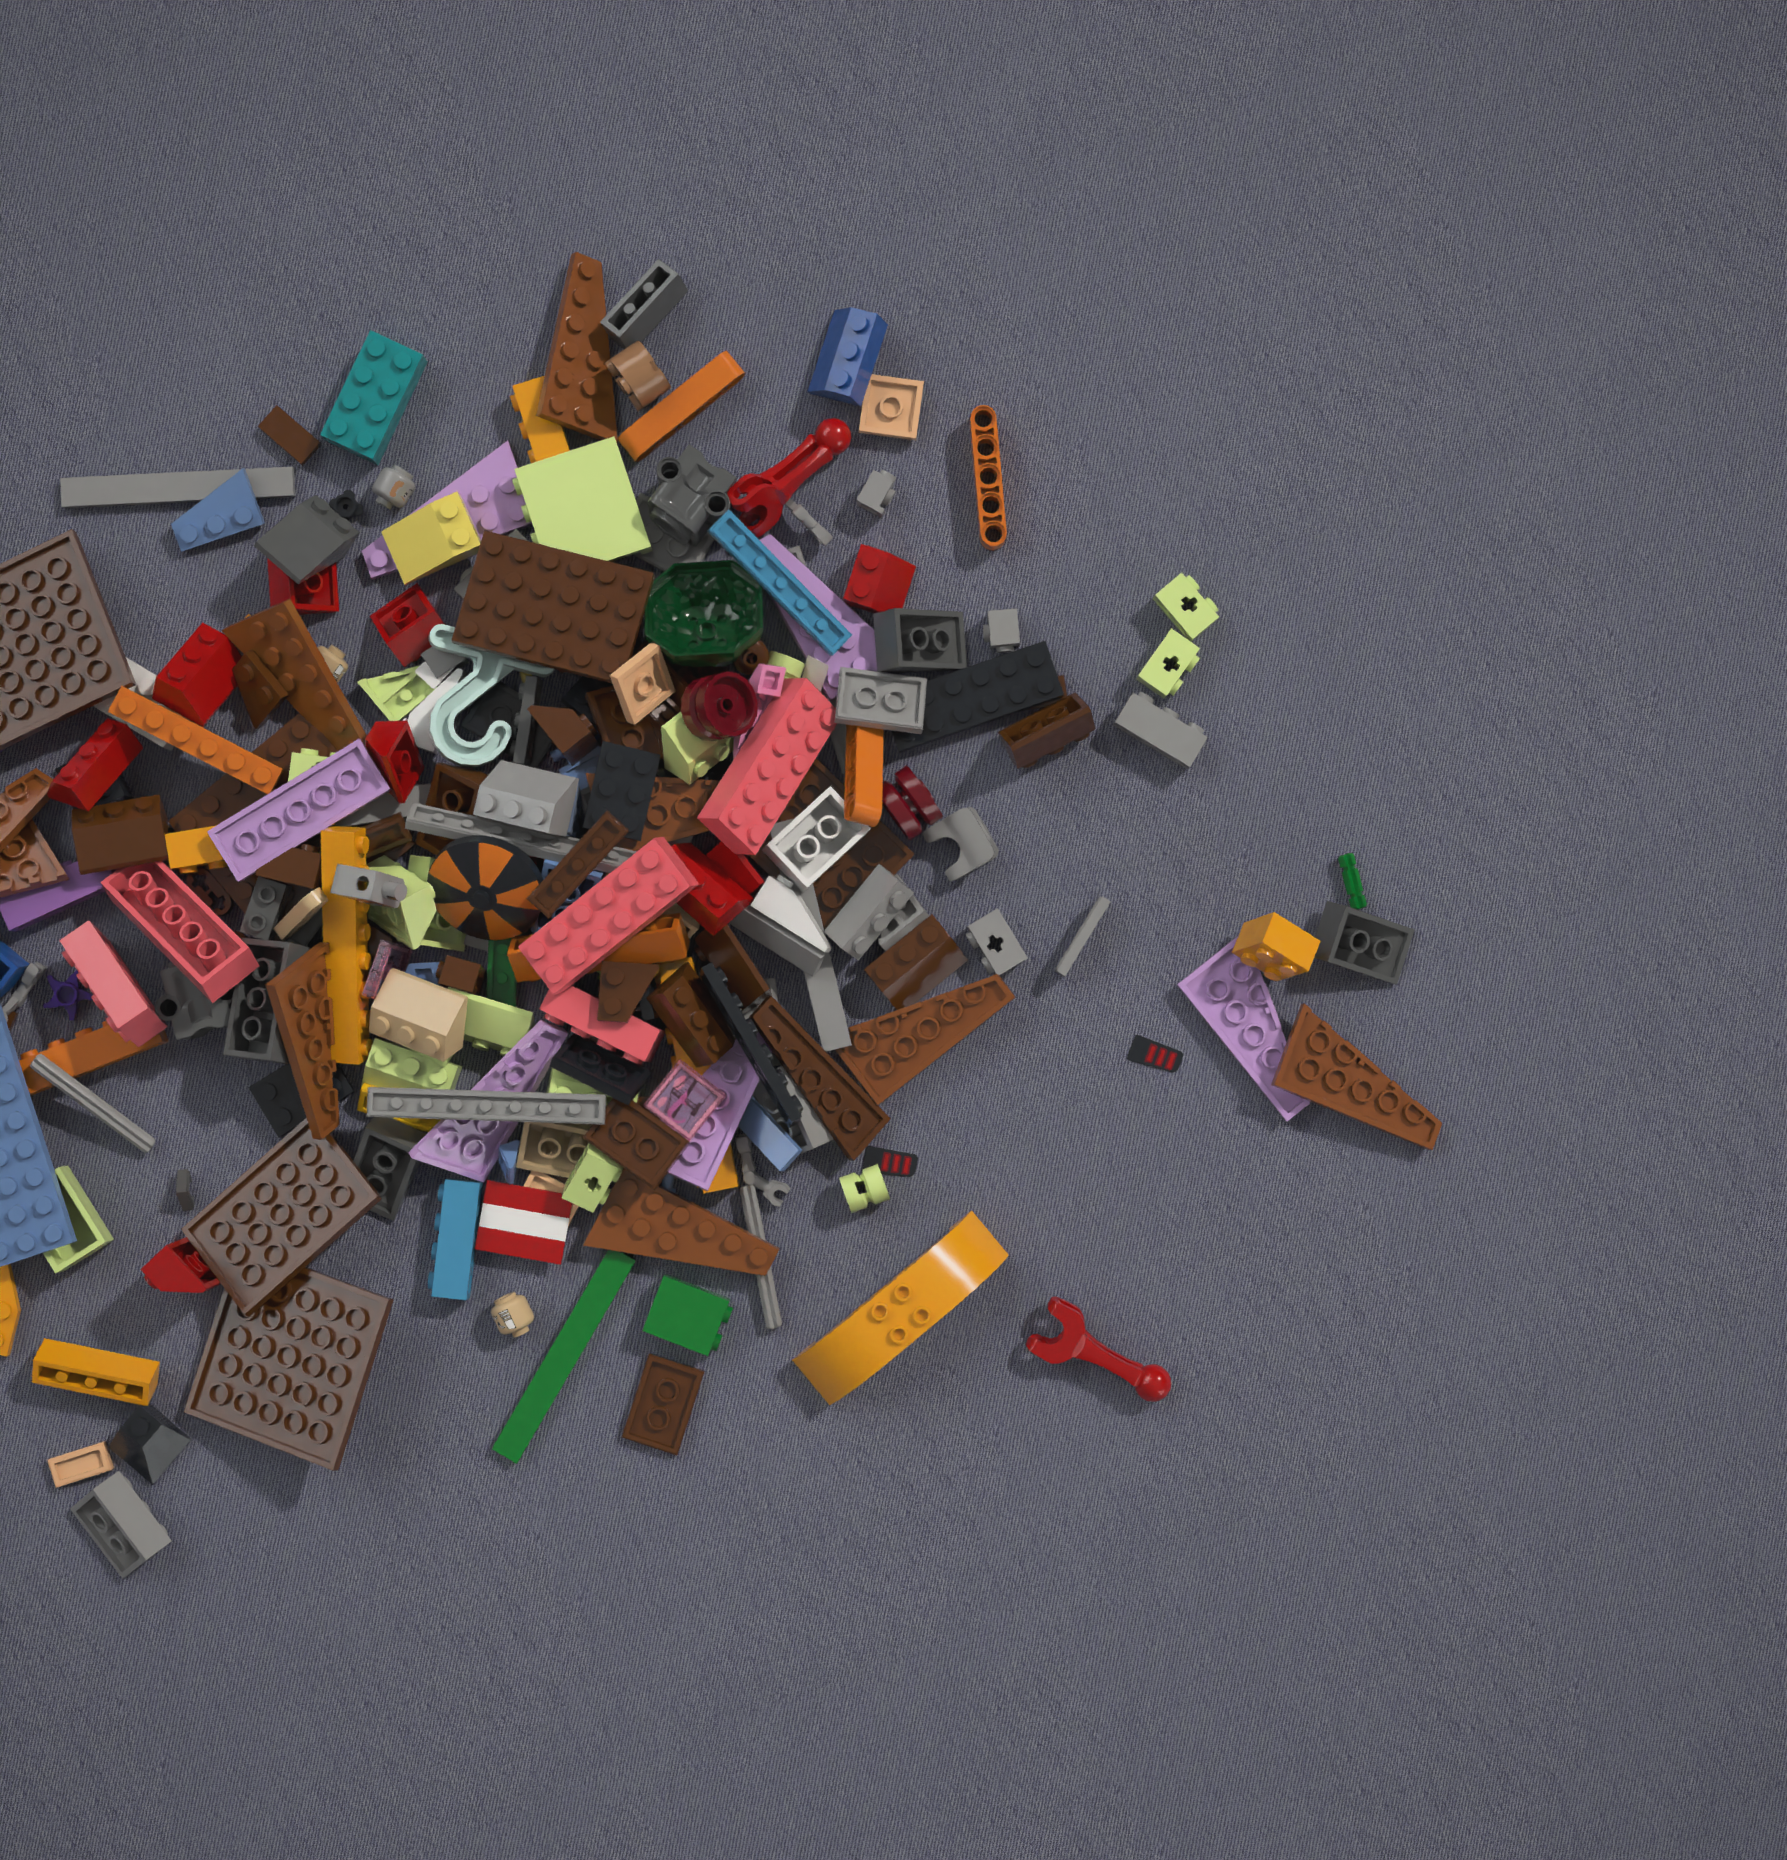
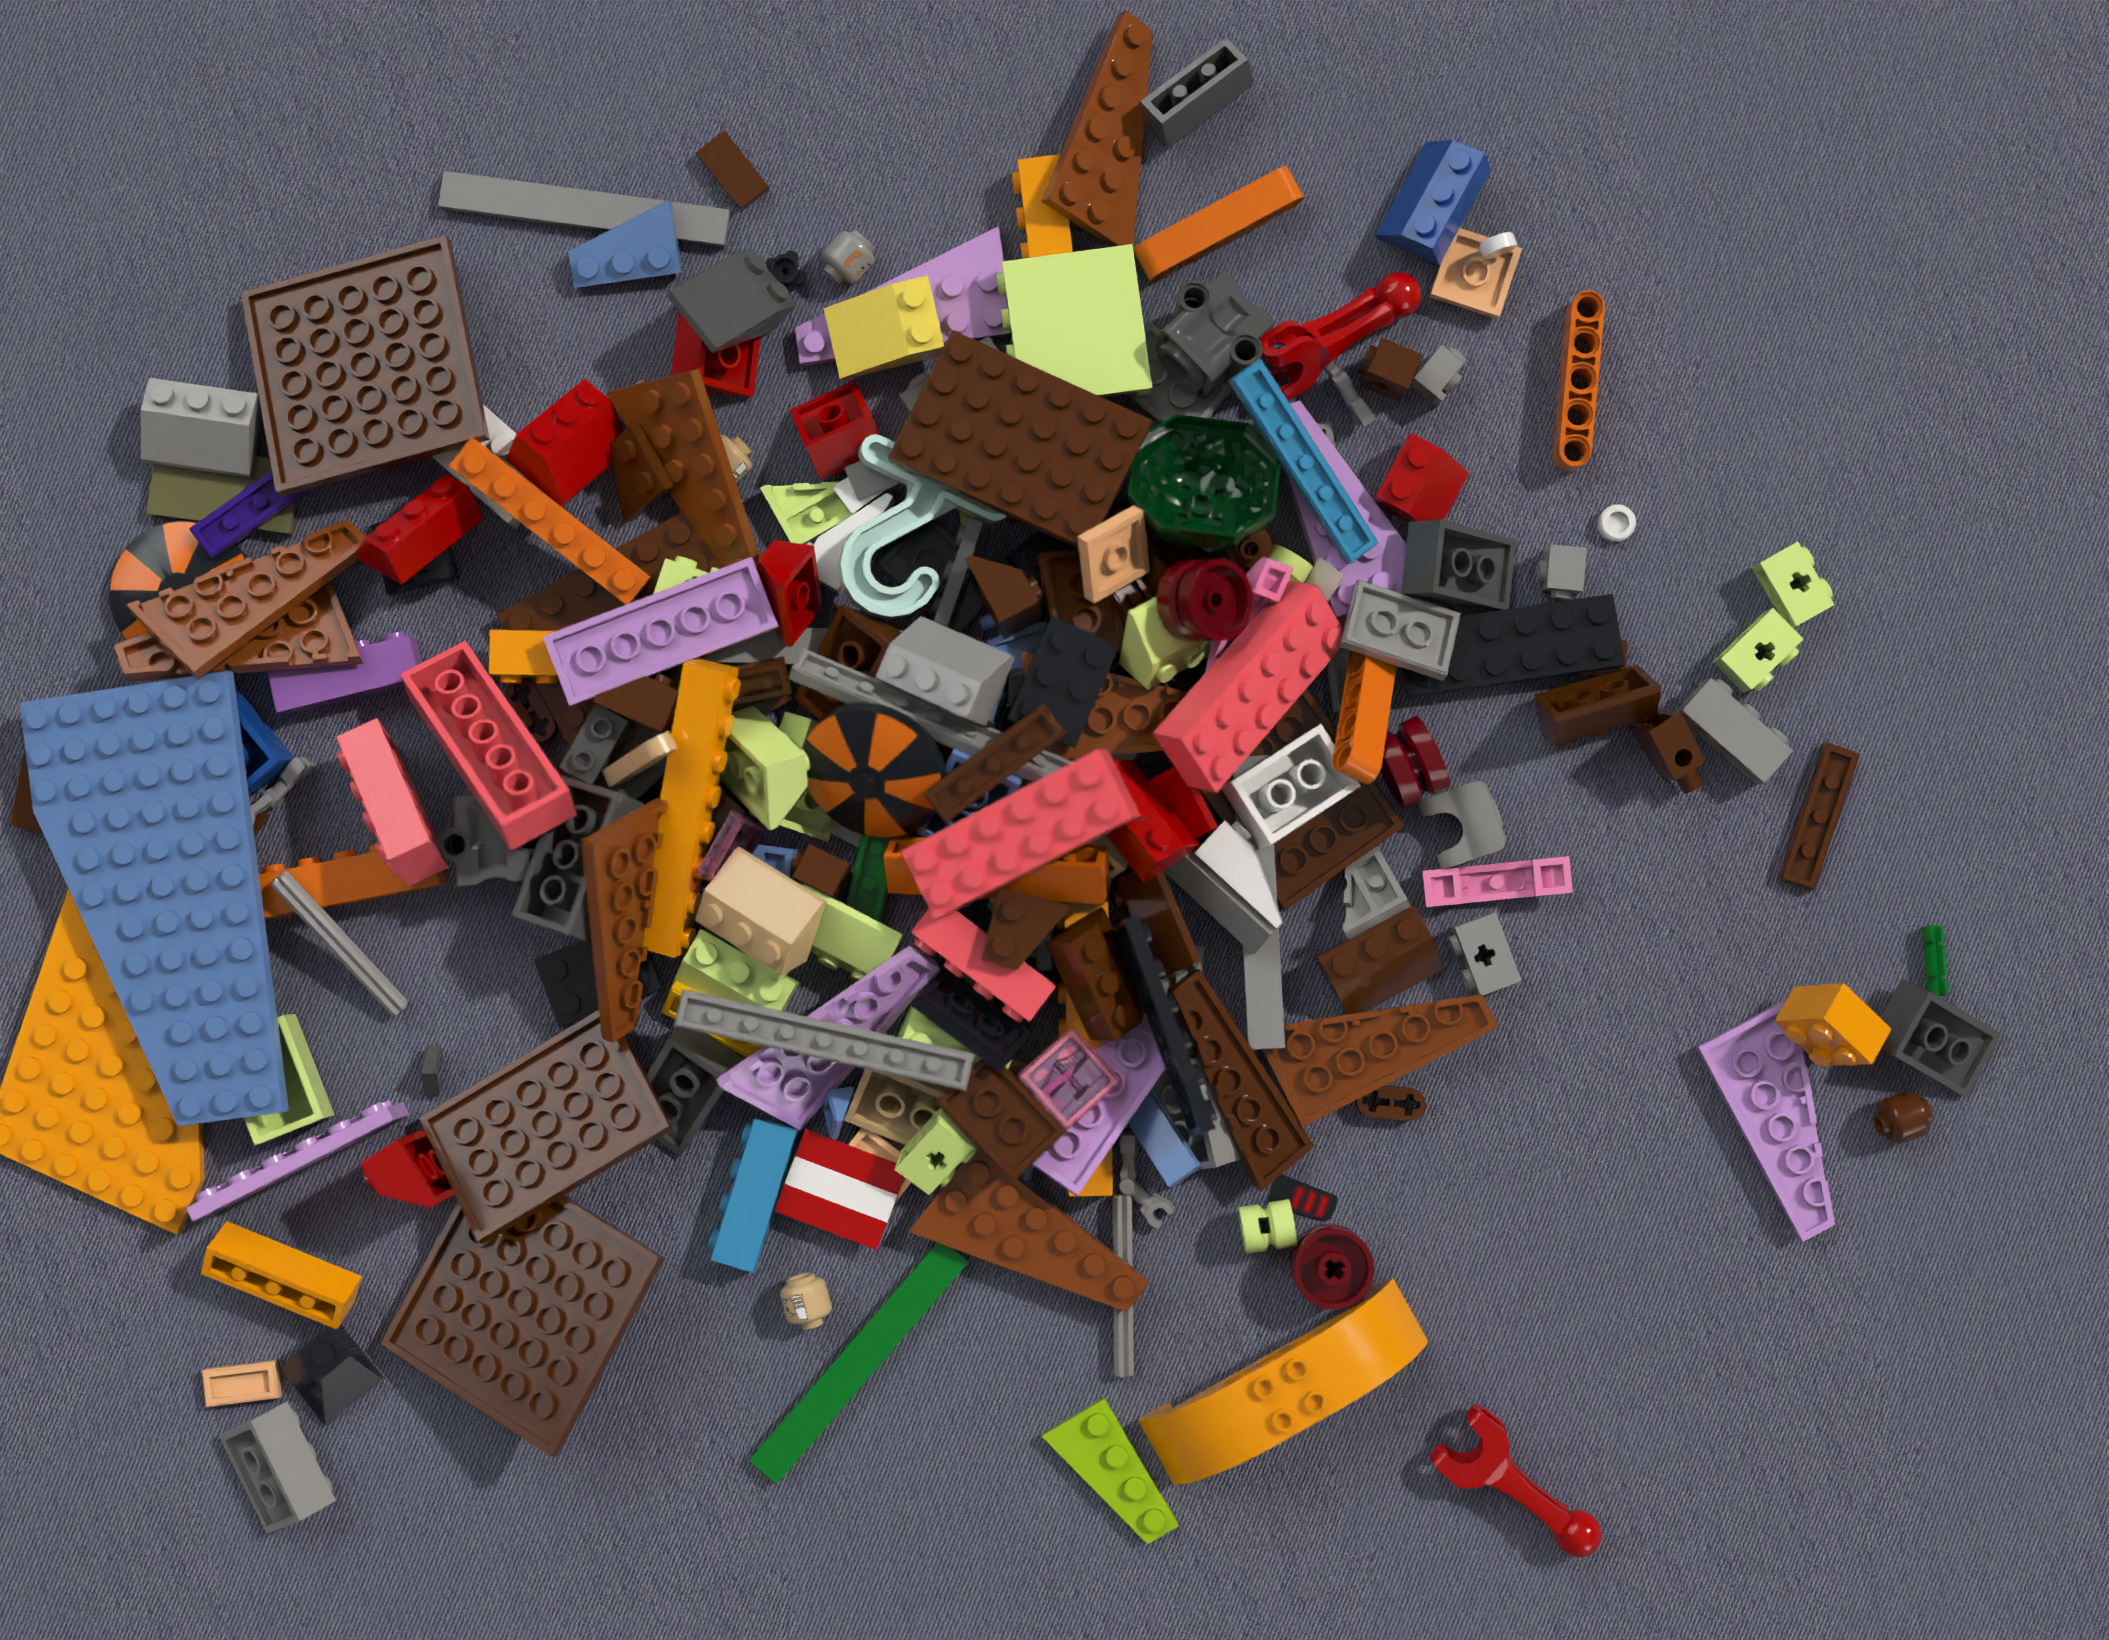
camera: 15 degrees right, 0 degrees up
(67, 994) = (333, 803): dark purple animal -> none
(99, 1272) = (286, 1164): none -> lavender plate
(120, 834) = (435, 620): reddish brown slope -> none
(374, 397) = (845, 143): teal brick -> none
(381, 891) = (747, 750): light grey torso -> none
(638, 375) = (1174, 175): medium nougat brick -> none
(663, 1404) = (969, 1444): reddish brown tile -> none
(688, 1315) = (1021, 1342): green brick -> none
(776, 1398) = (1107, 1460): none -> lime wing
(835, 496) = (1389, 369): none -> reddish brown brick
(868, 912) = (1337, 887): light grey brick -> none
(903, 383) = (1498, 245): none -> white tile
(926, 1226) = (1338, 1287): none -> dark red wheel
(946, 1080) = (1394, 1112): none -> reddish brown beam
(995, 884) = (1497, 881): none -> bright pink slope
(1039, 584) = (1616, 523): none -> white tile
(1082, 936) = (1591, 966): light grey tile -> none
(1103, 746) = (1671, 748): none -> reddish brown torso
(1154, 1054) = (1652, 1127): black sticker -> none
(1240, 785) = (1818, 816): none -> reddish brown tile
(1339, 1077) = (1879, 1201): dark orange wing -> none
(1348, 1009) = (1903, 1117): none -> reddish brown head

